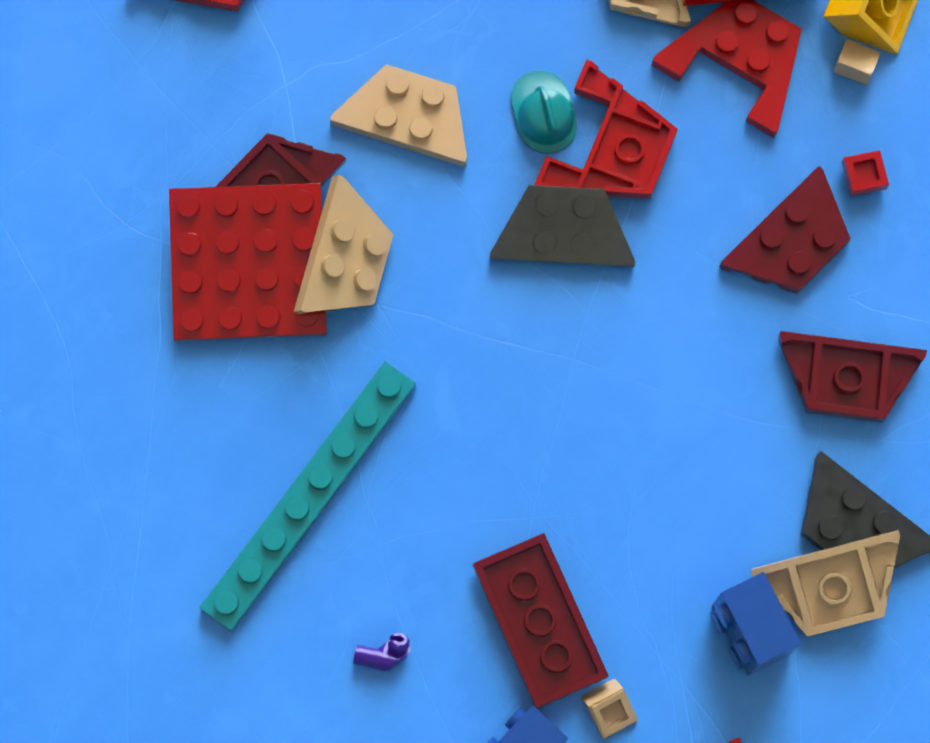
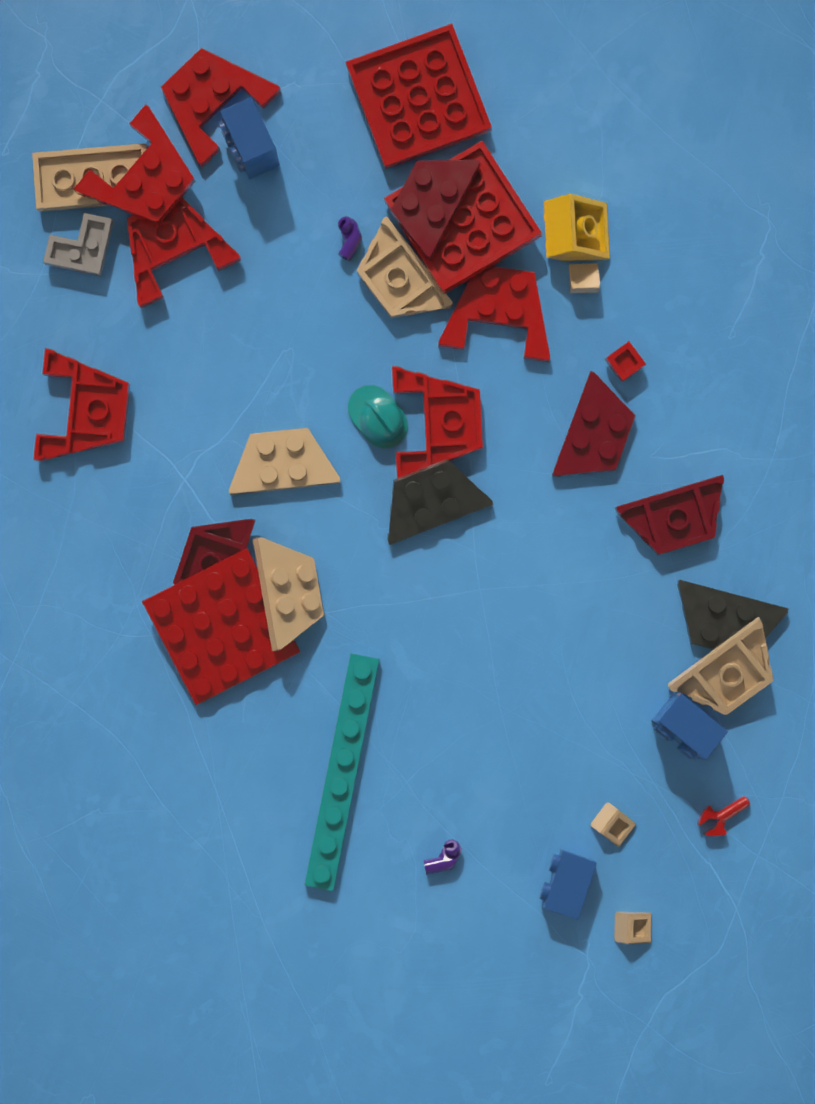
camera: 20 degrees left, 10 degrees up
(540, 621) = (540, 787): dark red plate -> none

